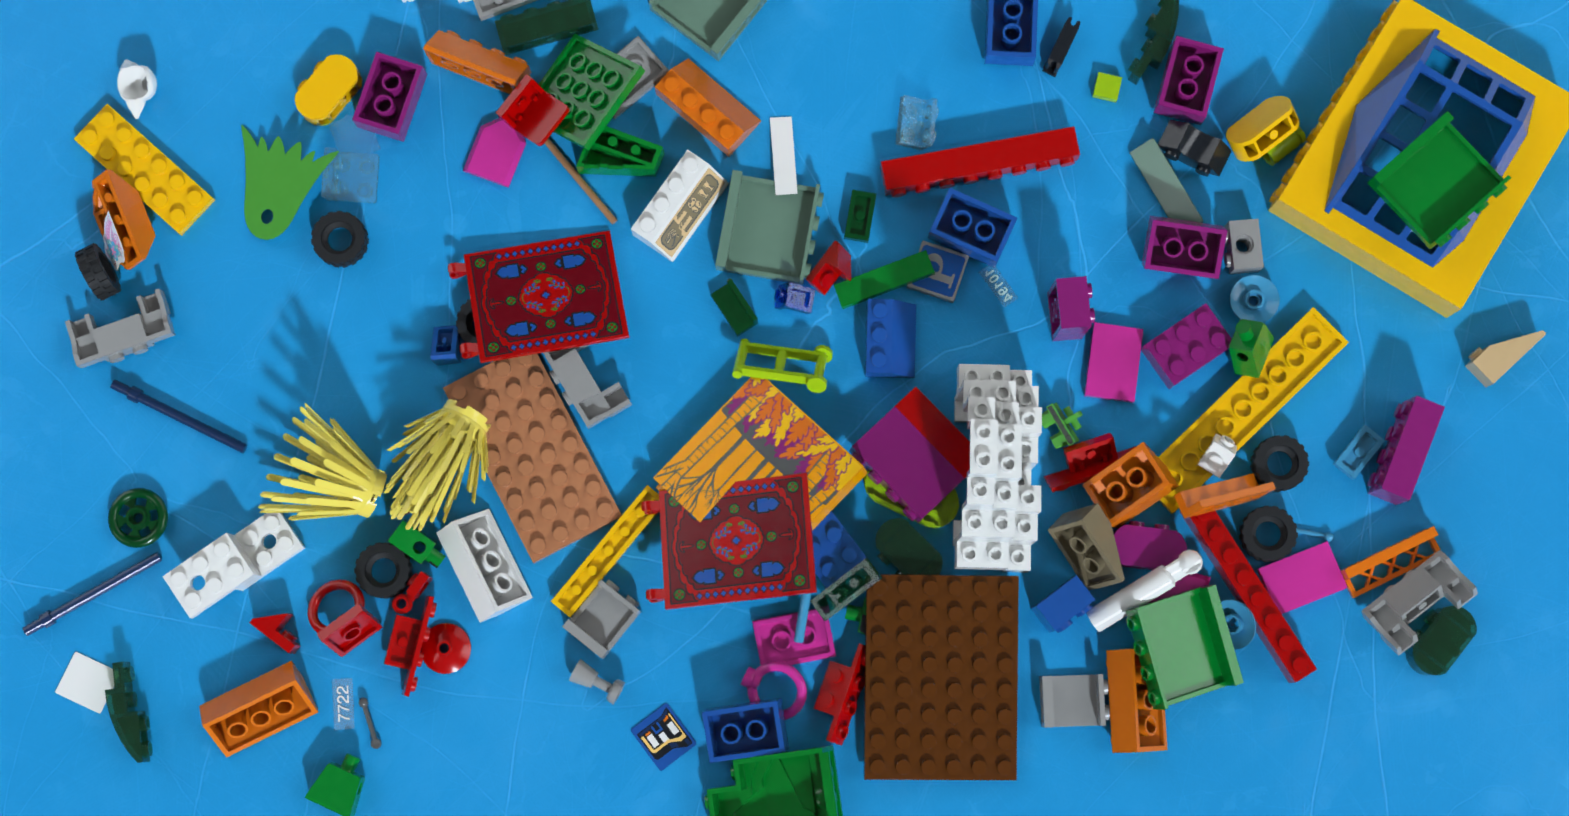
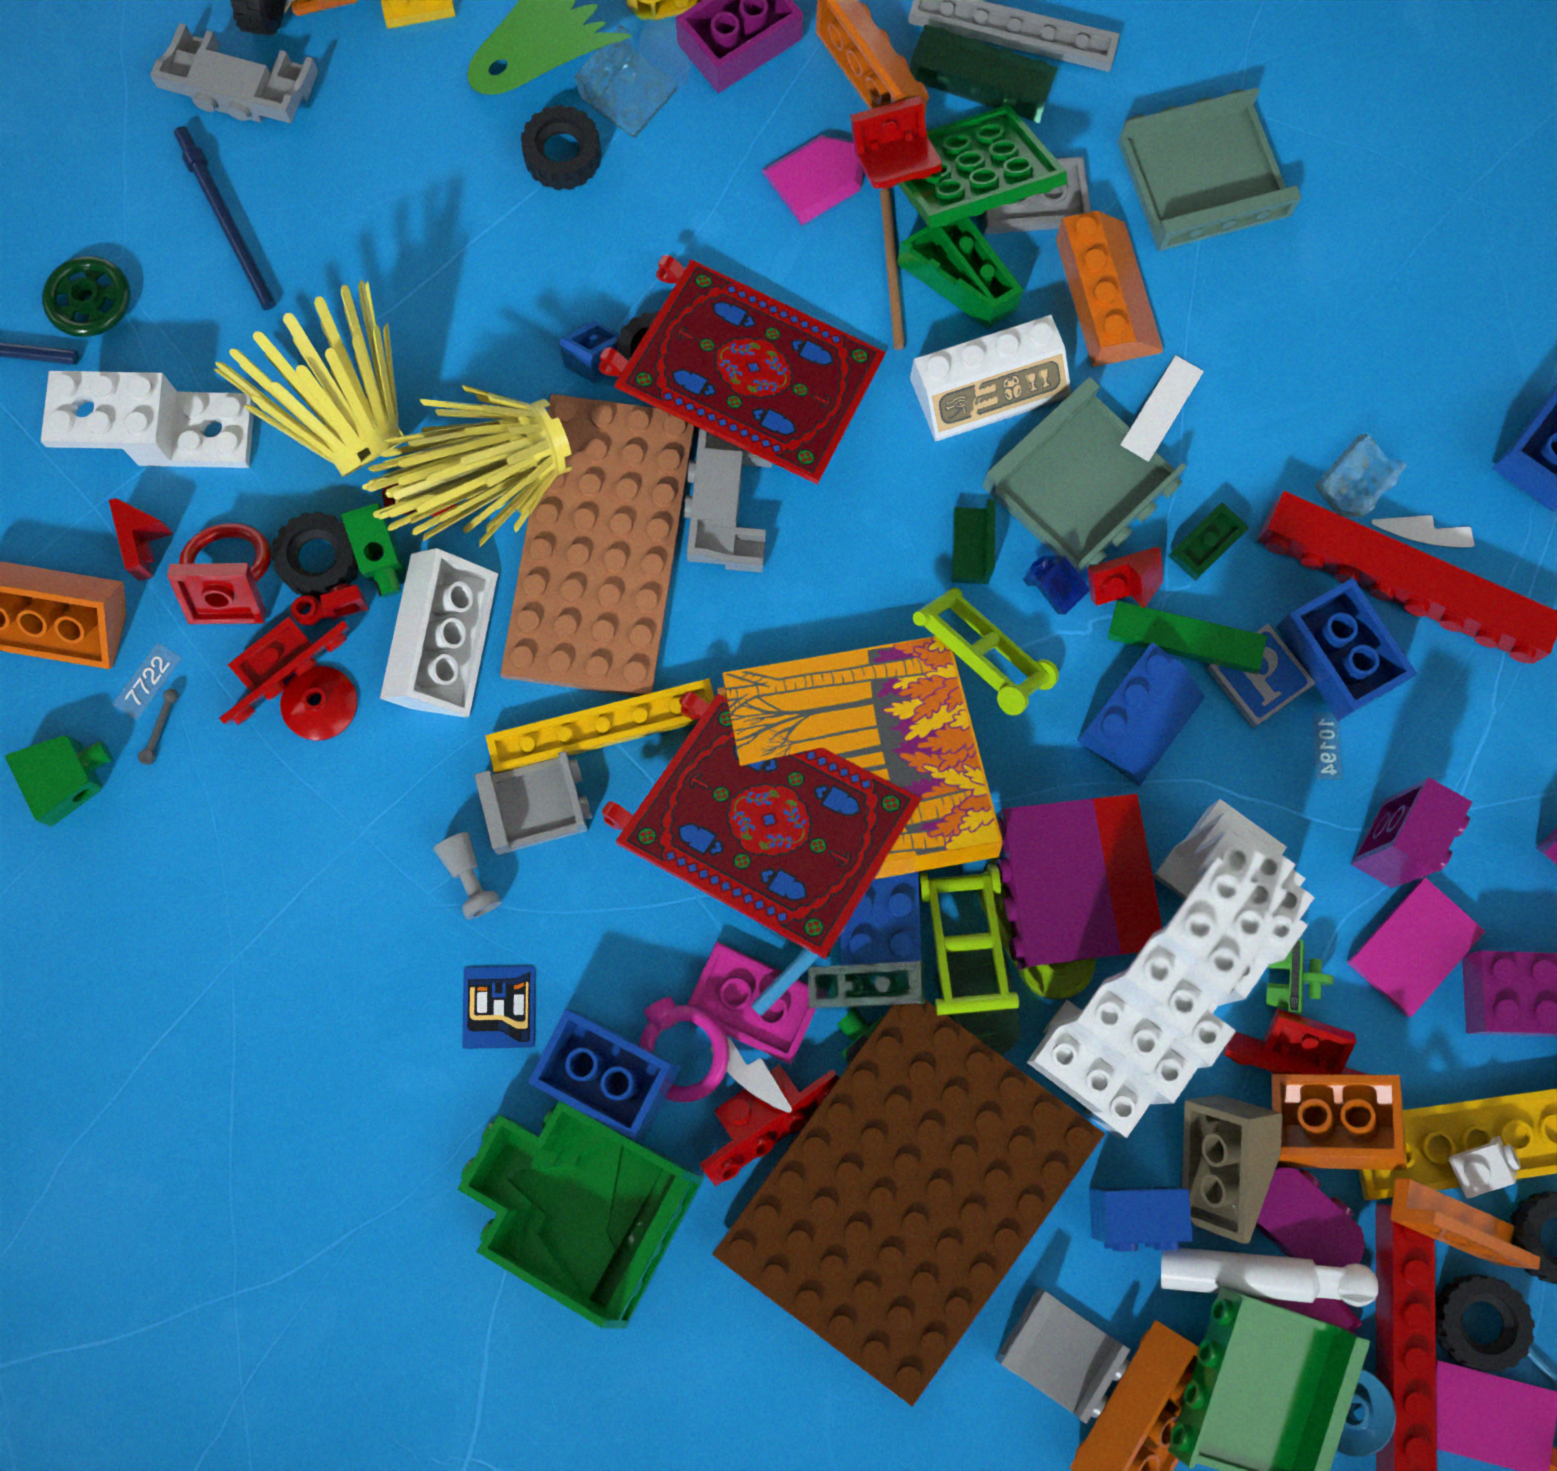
camera: 30 degrees right, 5 degrees down
(823, 676) = (755, 1079): none -> white sticker
(872, 489) = (991, 887): none -> lime piece
(970, 125) = (1423, 530): none -> white sticker

